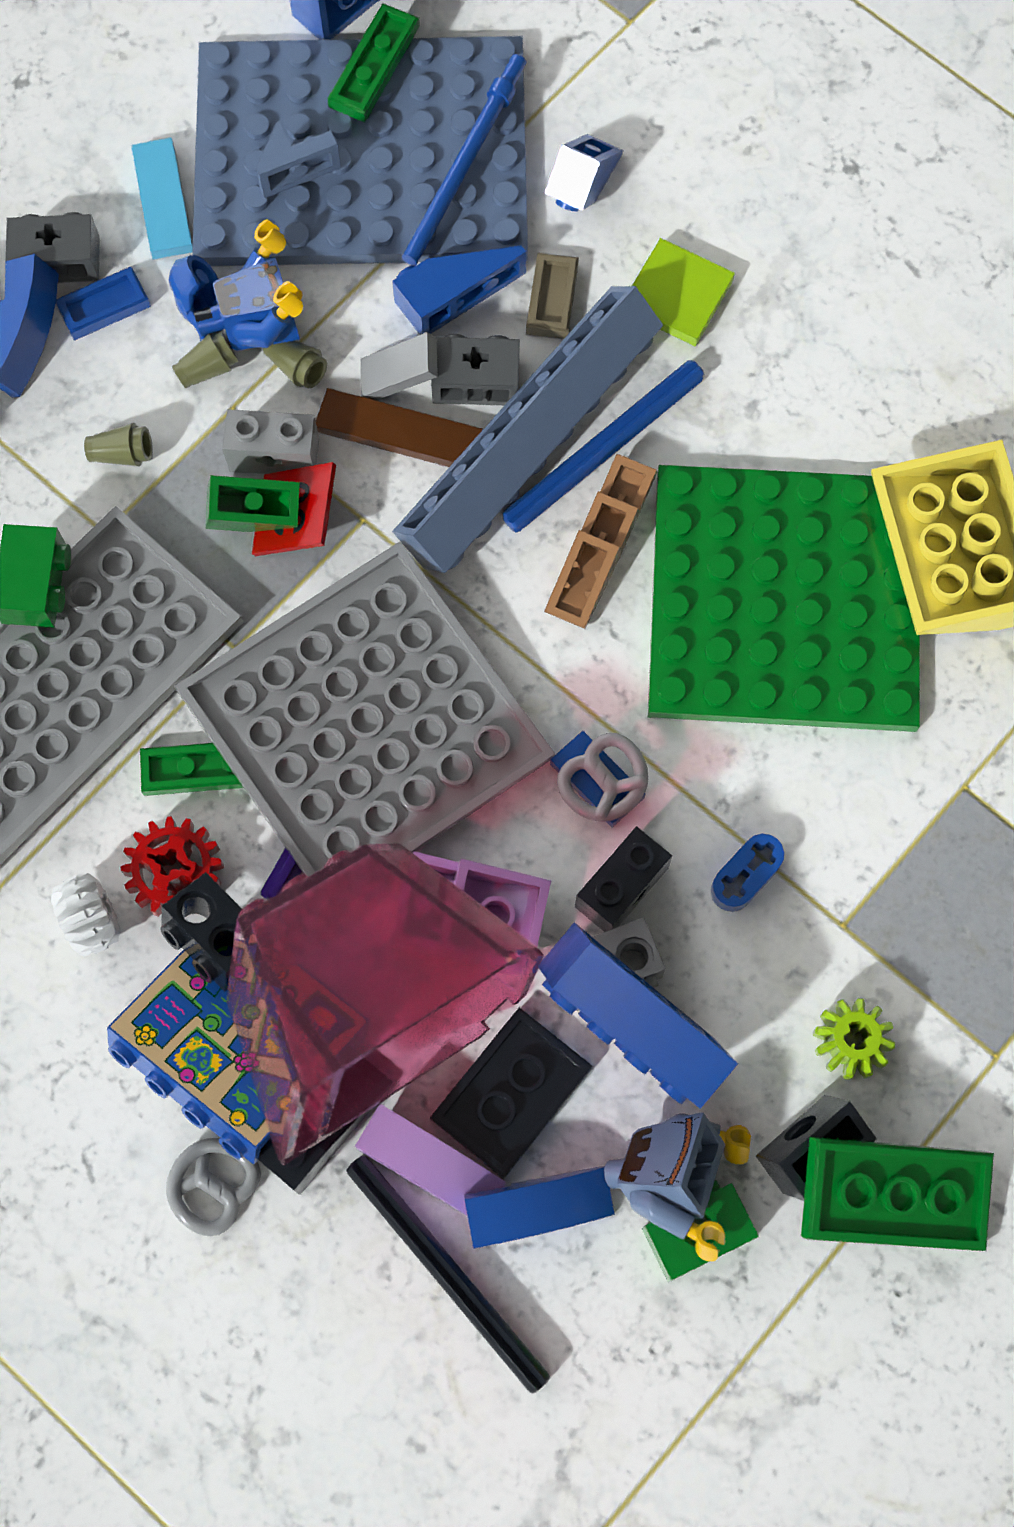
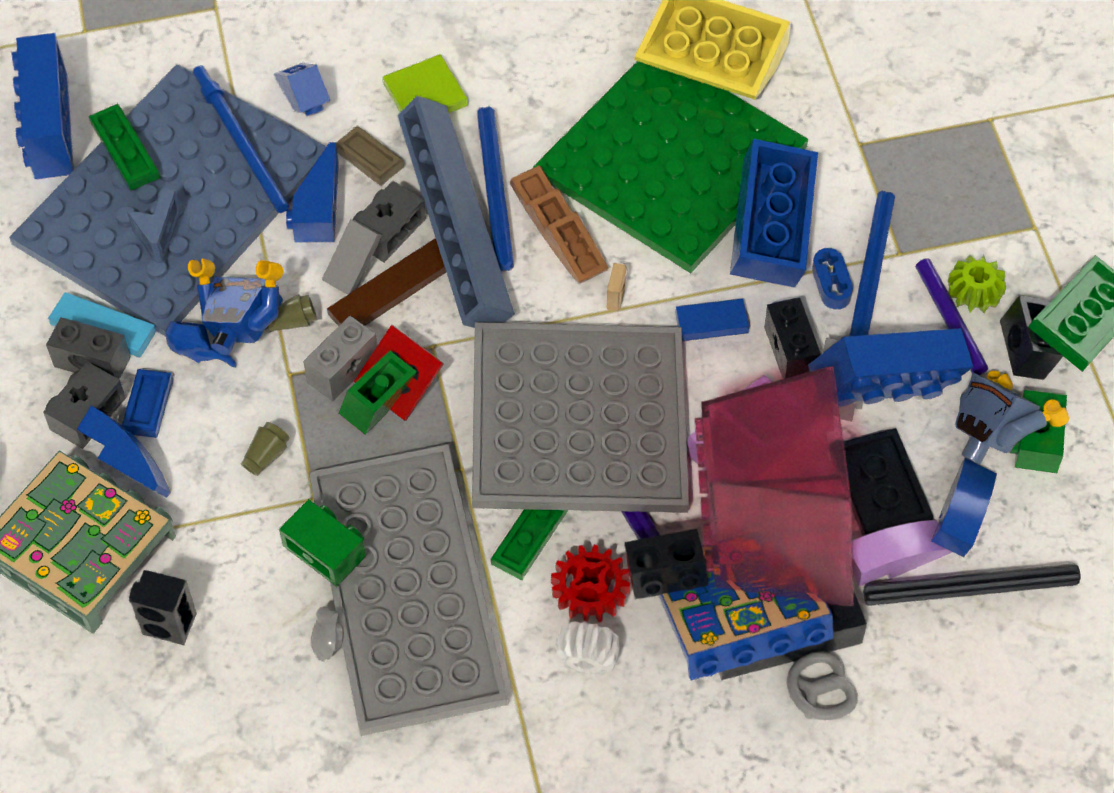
camera: 55 degrees left, 15 degrees down
(113, 207) = (78, 343): none -> dark grey brick
(205, 361) = (247, 363): olive cone -> none
(560, 652) = (616, 287): none -> tan tile
(605, 779) = (719, 310): light grey piece -> none
(771, 754) = (774, 213): none -> blue brick
(785, 910) = (872, 264): none -> blue axle
(791, 1037) = (949, 311): none -> dark purple piece

